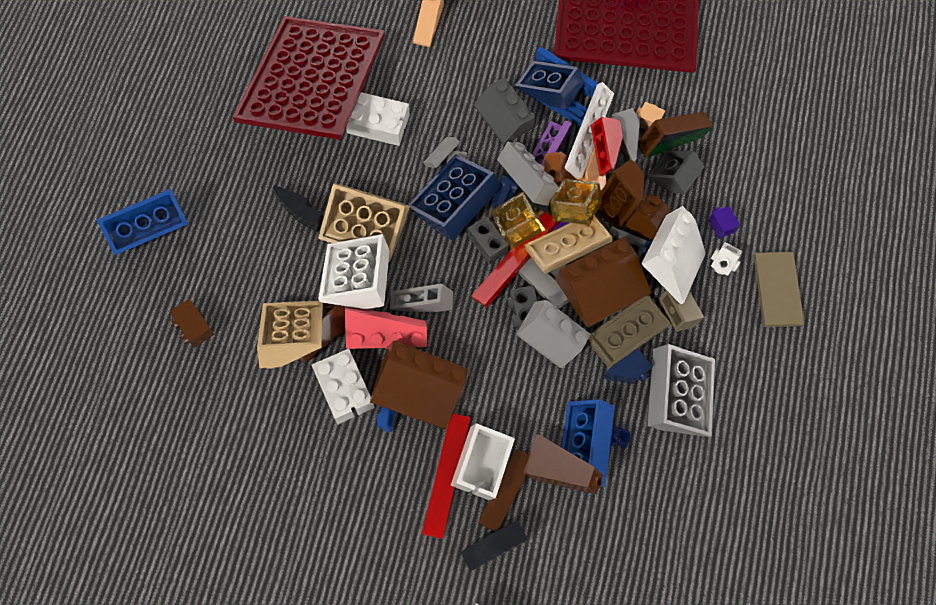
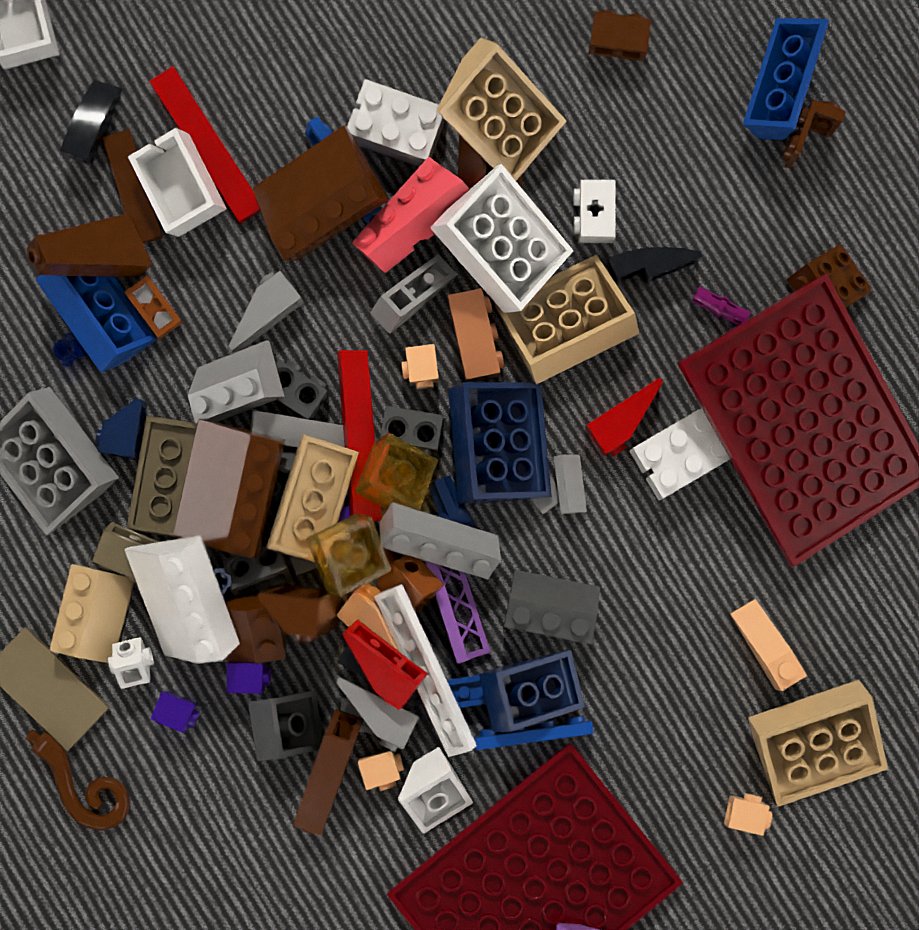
camera: 135 degrees right, 15 degrees up
(177, 186) = (817, 117): none -> reddish brown bracket
(227, 129) = (842, 272): none -> reddish brown bracket
(288, 257) = (599, 195): none -> white brick
(290, 163) = (720, 306): none -> magenta pin
(389, 156) = (619, 423): none -> red slope
(413, 253) = (475, 335): none -> nougat brick
(453, 263) = (421, 366): none -> light nougat brick
(497, 360) = (268, 306): none -> light grey slope
(556, 416) = (153, 307): none -> dark orange piece
(632, 89) = (433, 791): none -> white slope
(676, 200) = (247, 677): none -> dark purple brick
(727, 300) = (91, 613): none -> tan slope
(801, 255) = (54, 754): none -> reddish brown plant

